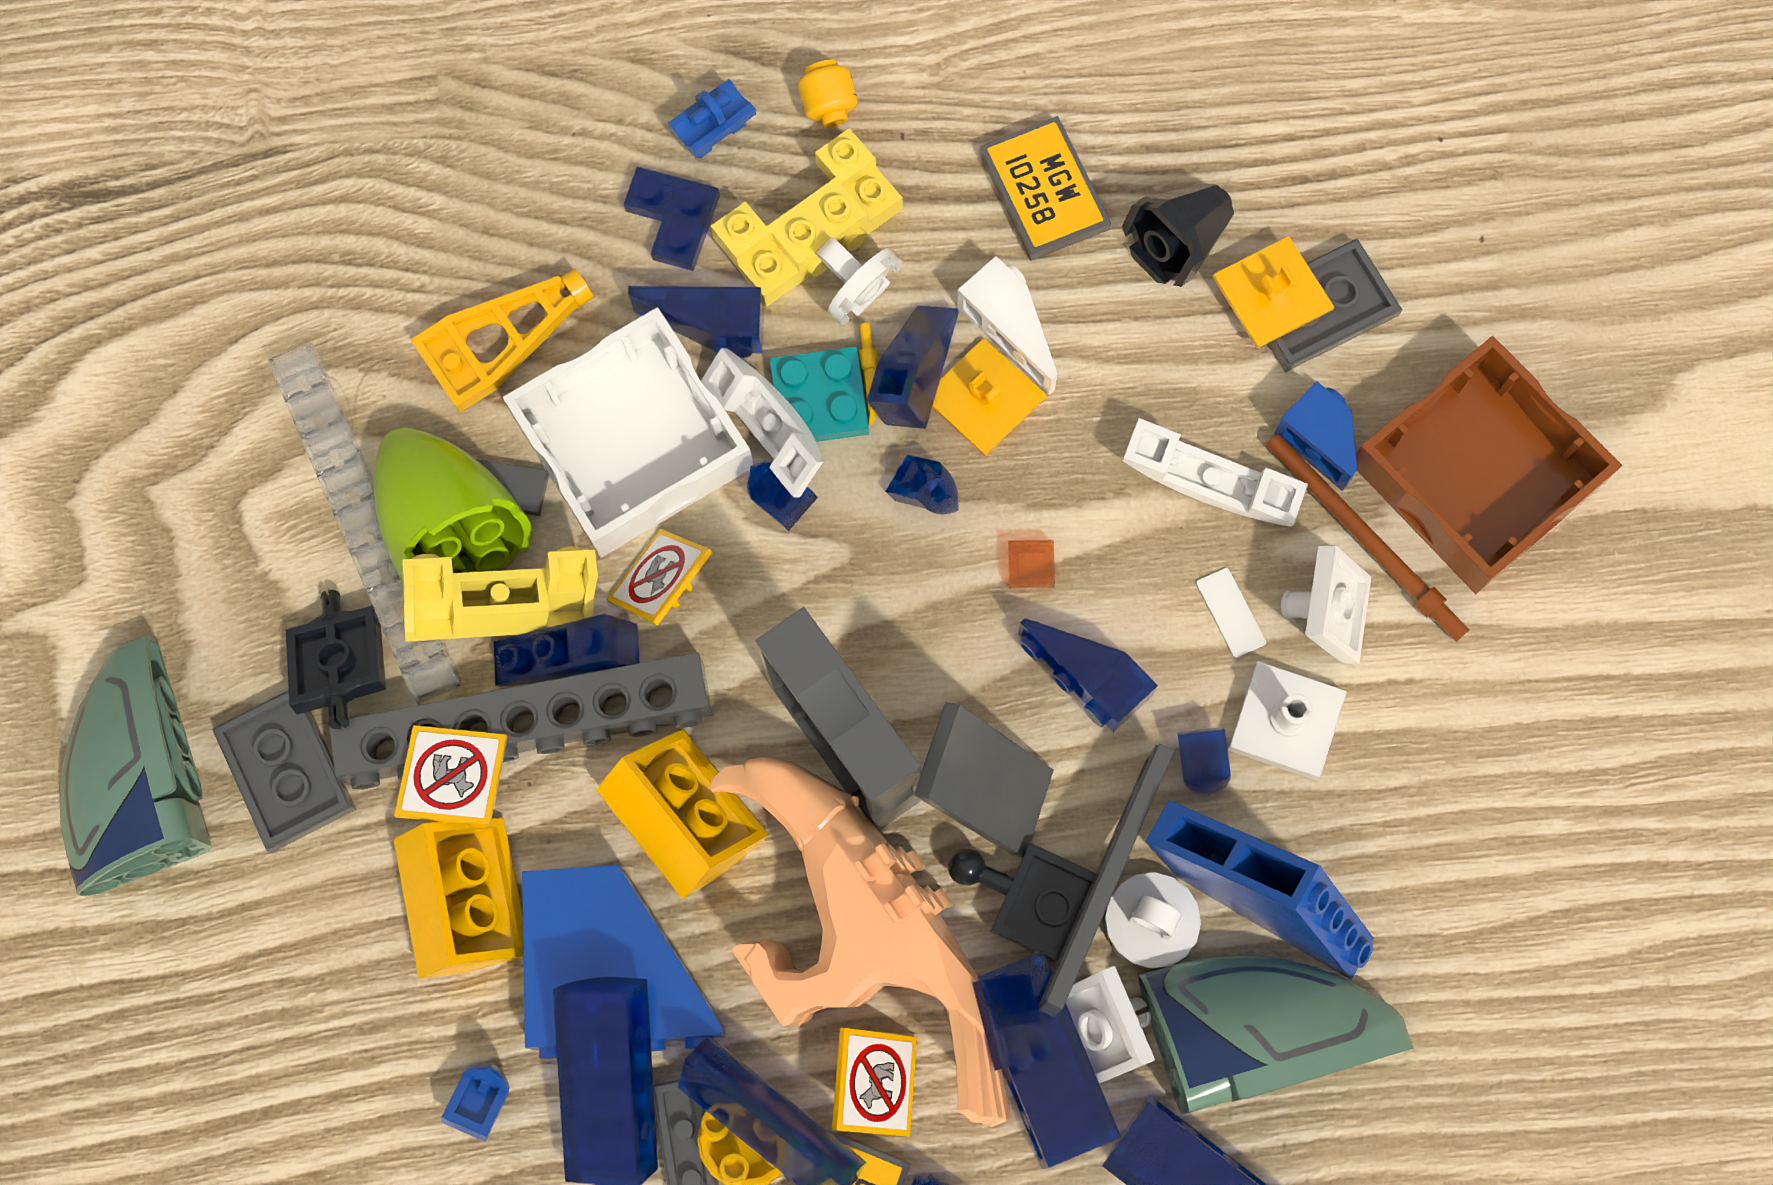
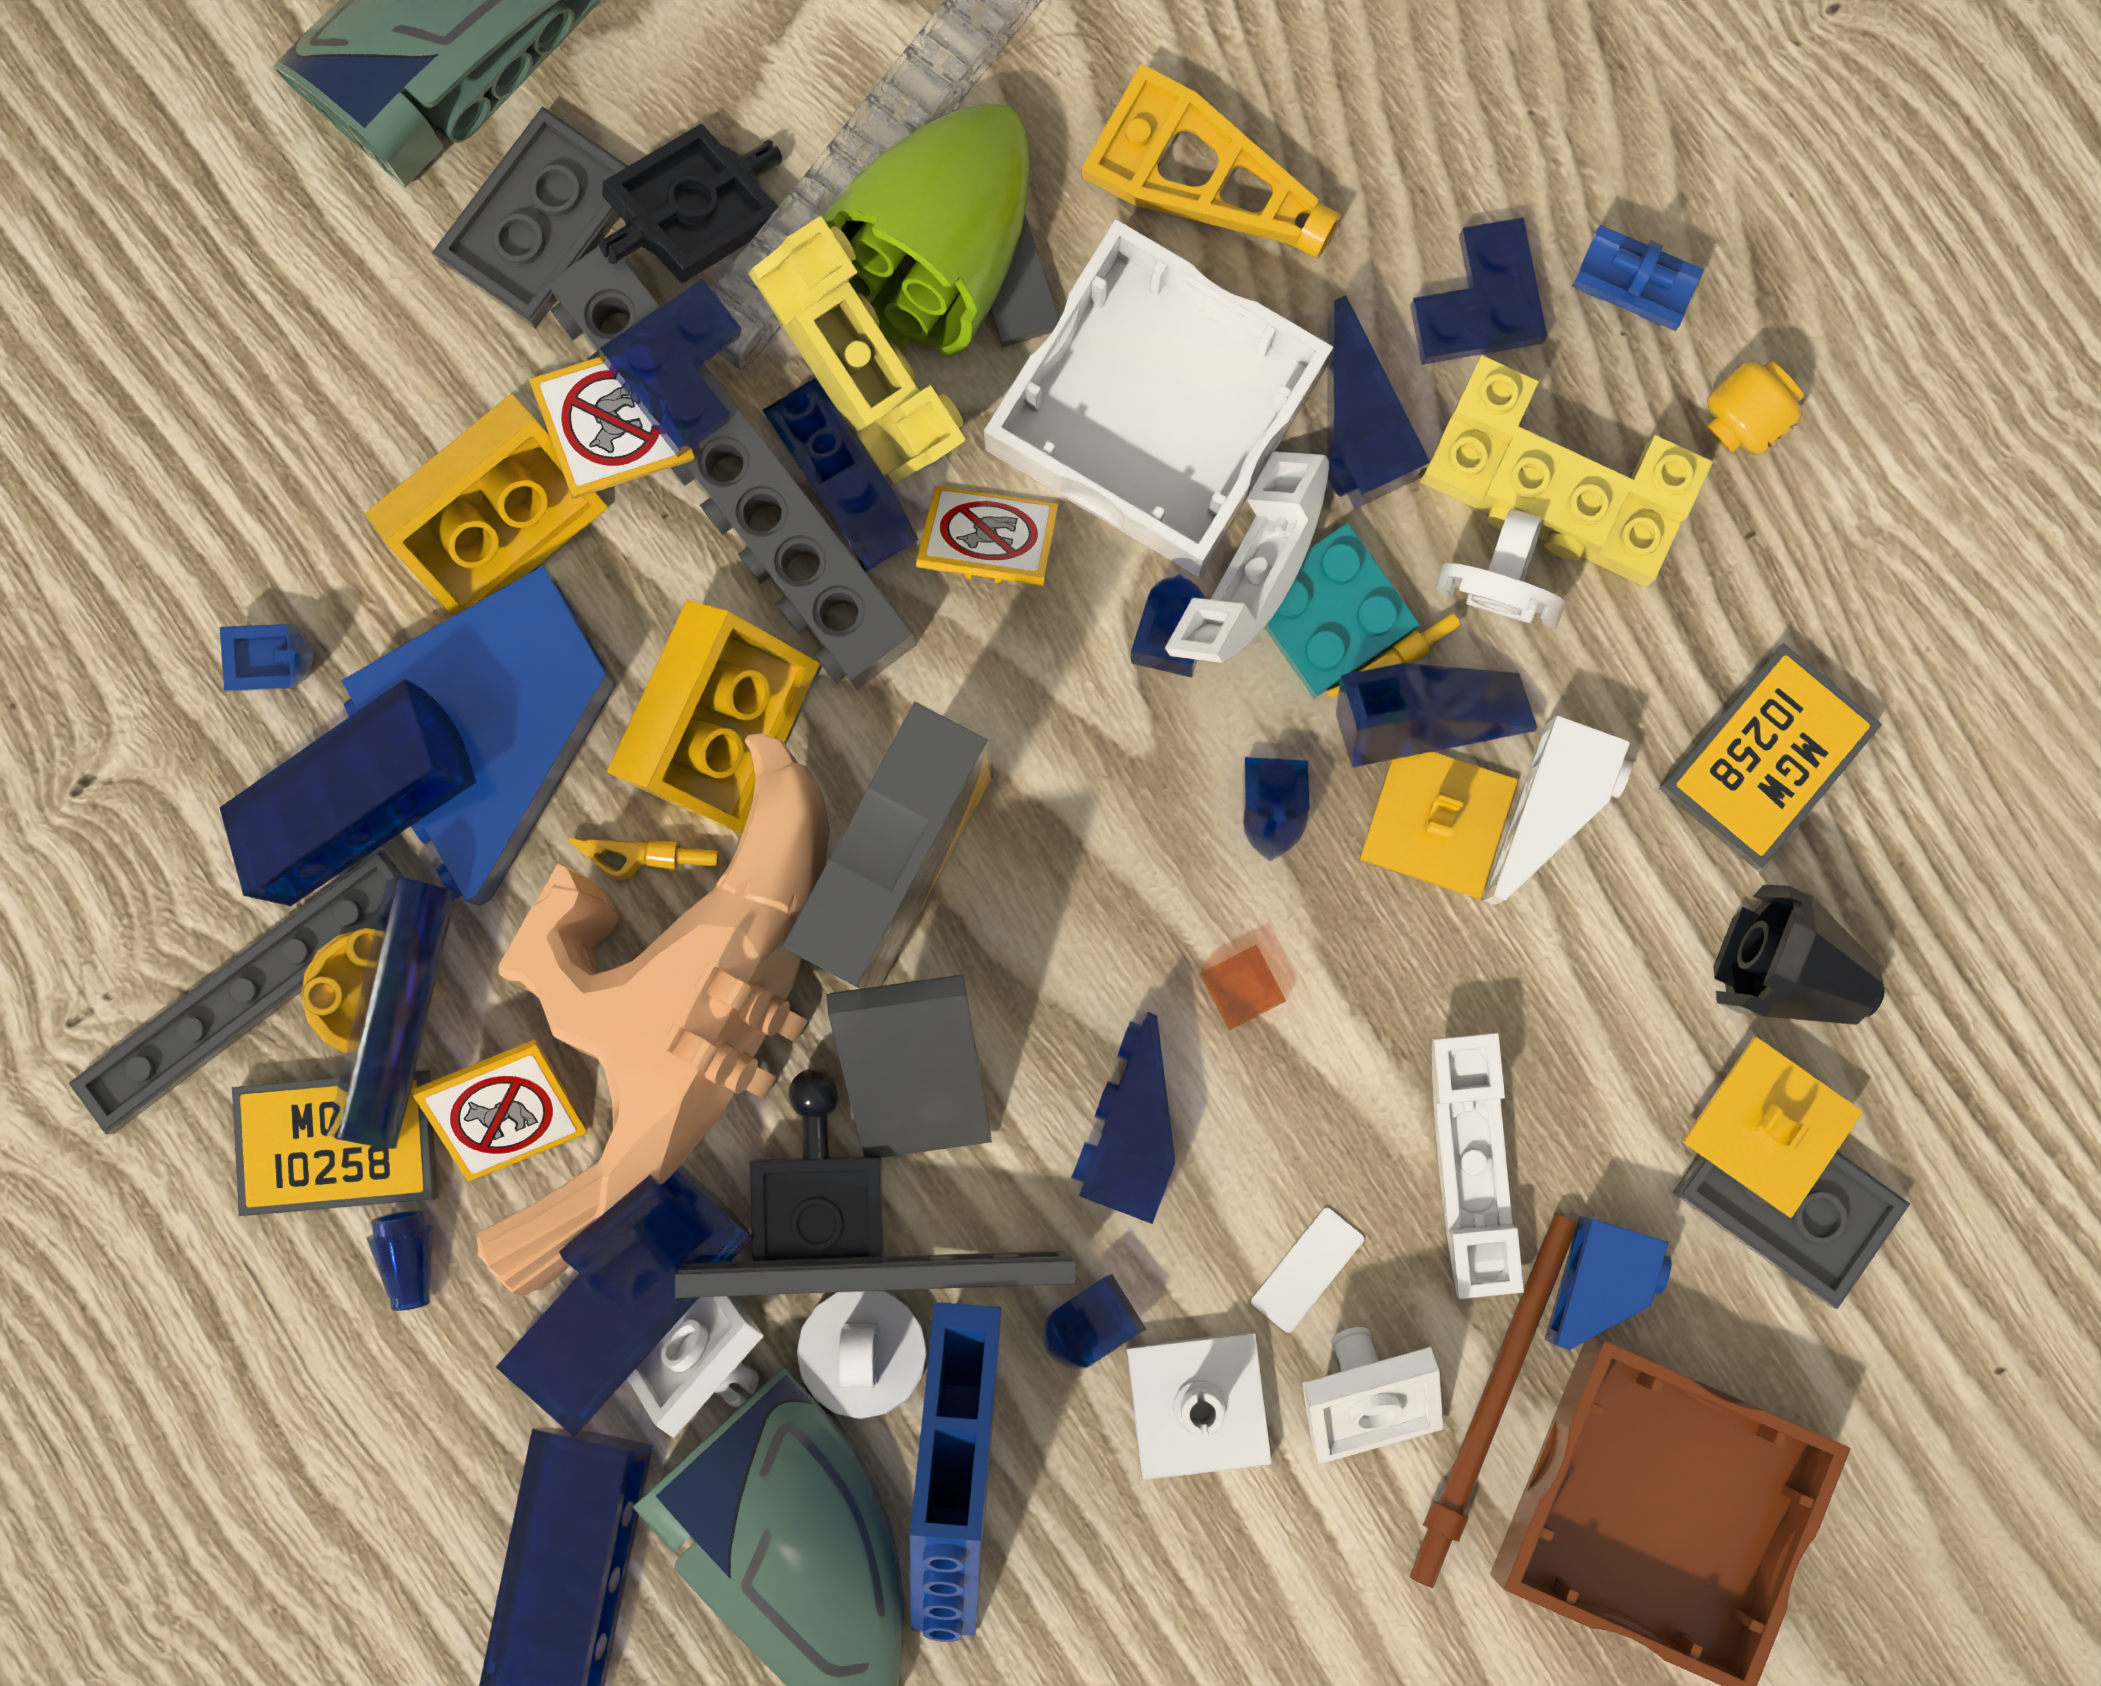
camera: 60 degrees right, 10 degrees up
(438, 728) = (659, 361): none -> clear blue plate
(746, 910) = (652, 853): none -> yellow hand

